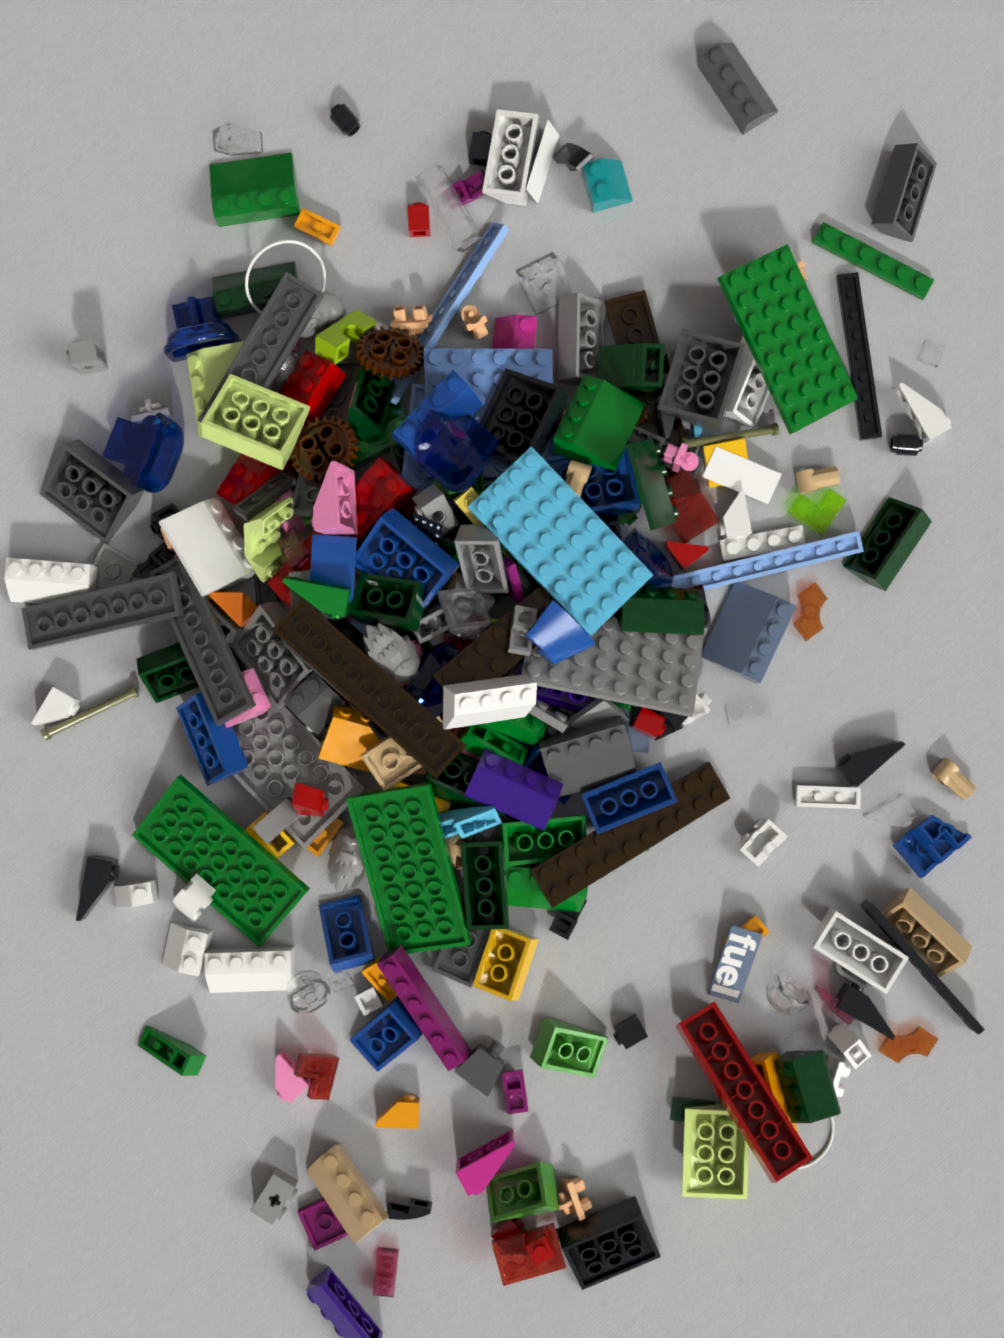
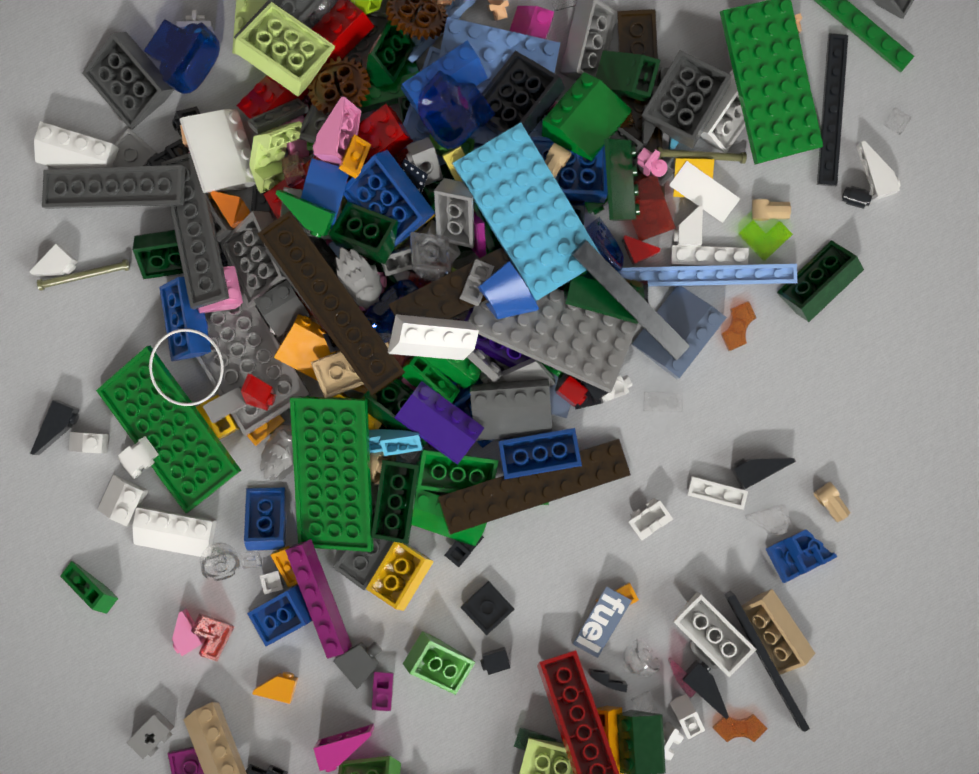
camera: 20 degrees right, 0 degrees up
(262, 775) = (221, 362): none -> white piece
(359, 522) = (354, 156): none -> light orange plate
(608, 976) = (487, 608): none -> black plate
(690, 611) = (630, 299): none -> tile
(750, 1024) = (603, 678): none -> black slope

